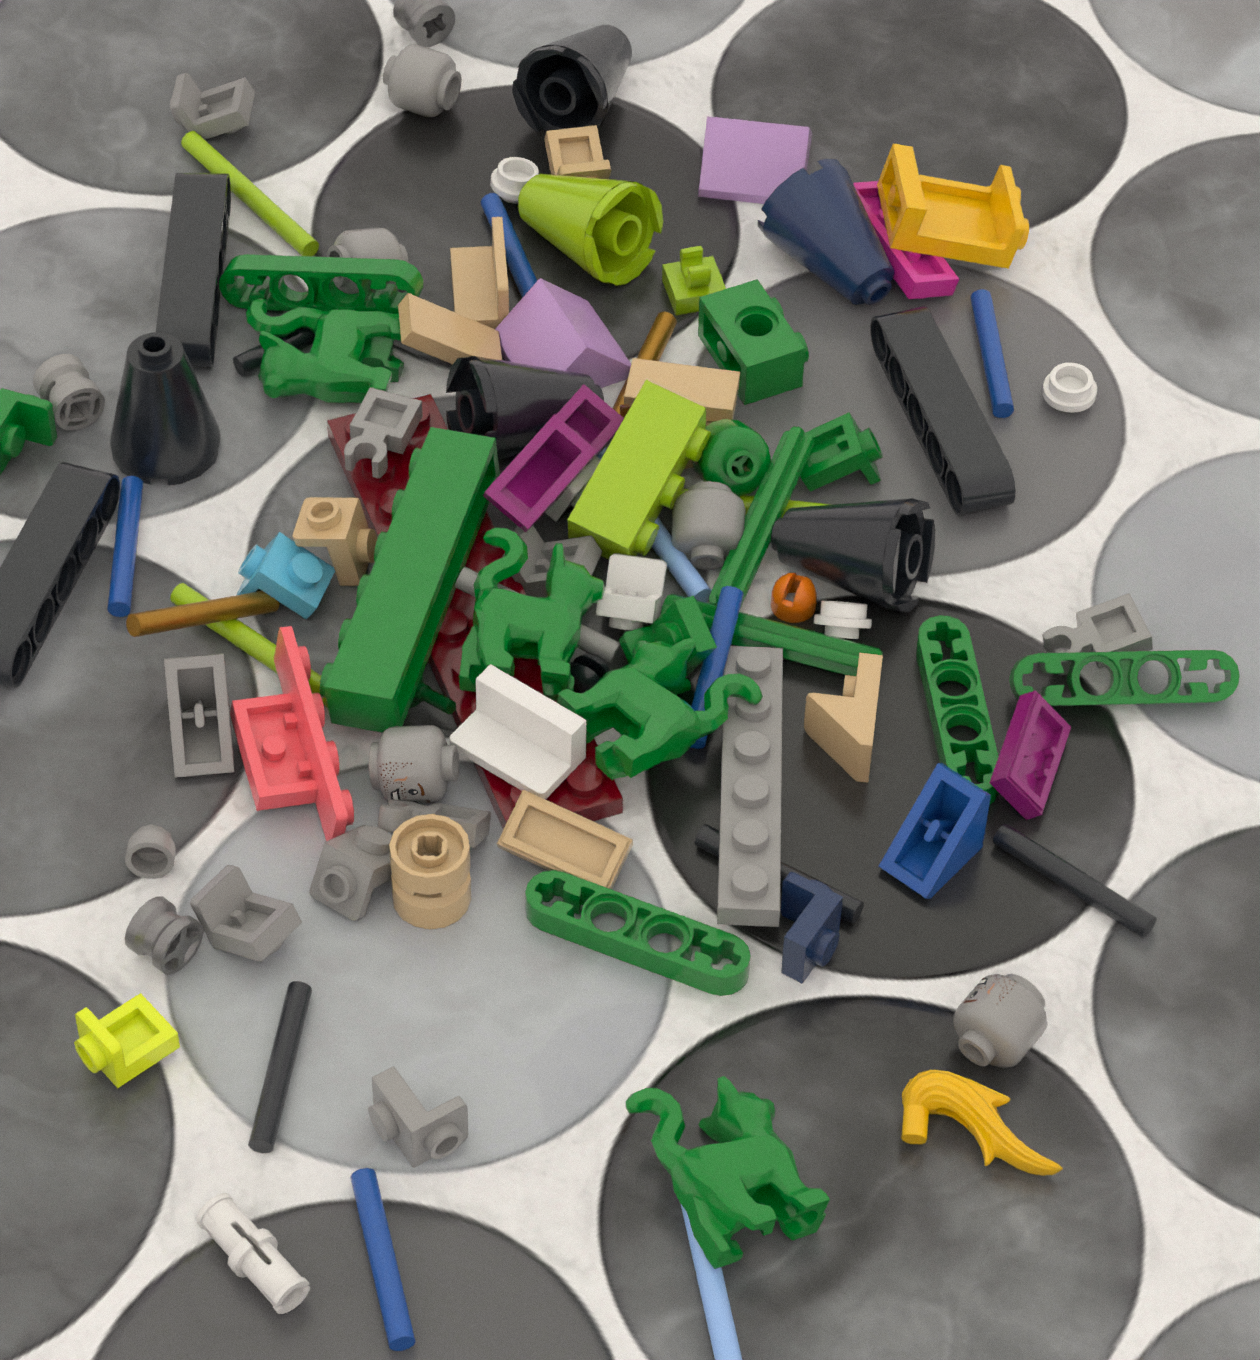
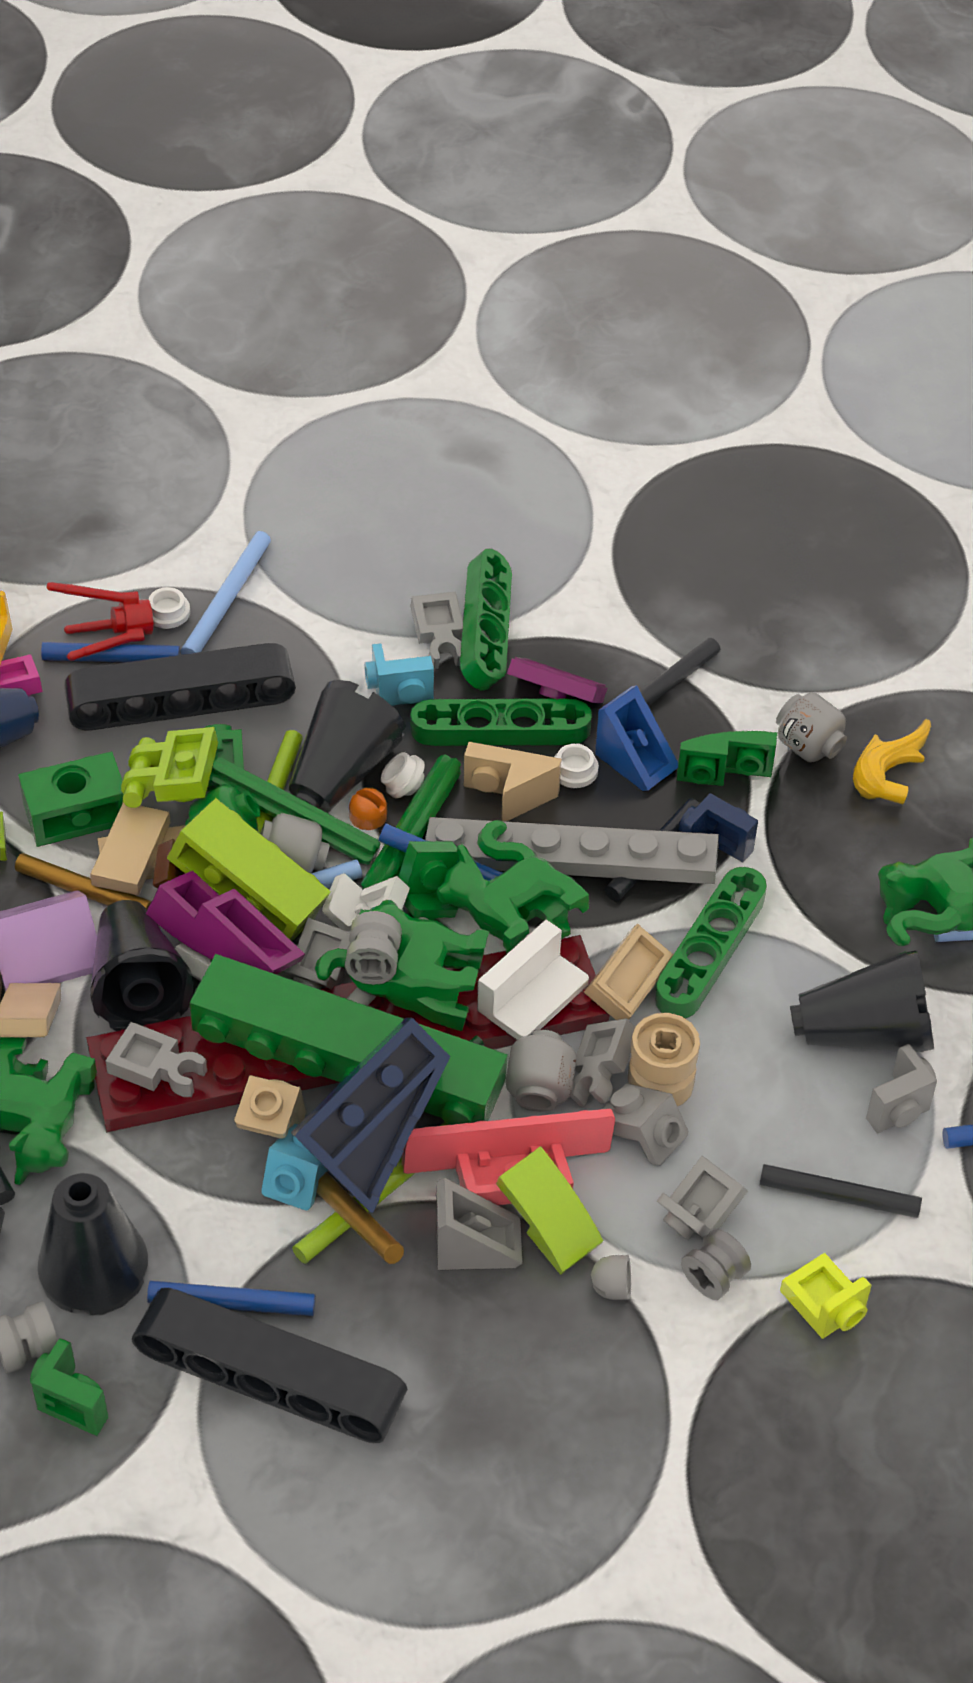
camera: 85 degrees left, 0 degrees up
(208, 781) = (552, 1209): none -> lime slope
(288, 577) = (373, 1111): none -> dark blue wedge
(508, 557) = (373, 947): none -> light grey wheel
(528, 1088) = (869, 1008): none -> black cone
(781, 393) = (171, 768): none -> lime plate
(894, 784) = (577, 766): none -> white plate
(932, 932) = (740, 752): none -> green slope
(994, 597) = (401, 679): none -> medium azure bracket
(1035, 347) = (130, 618): none -> red plant
(1113, 441) = (226, 593): none -> light blue bar

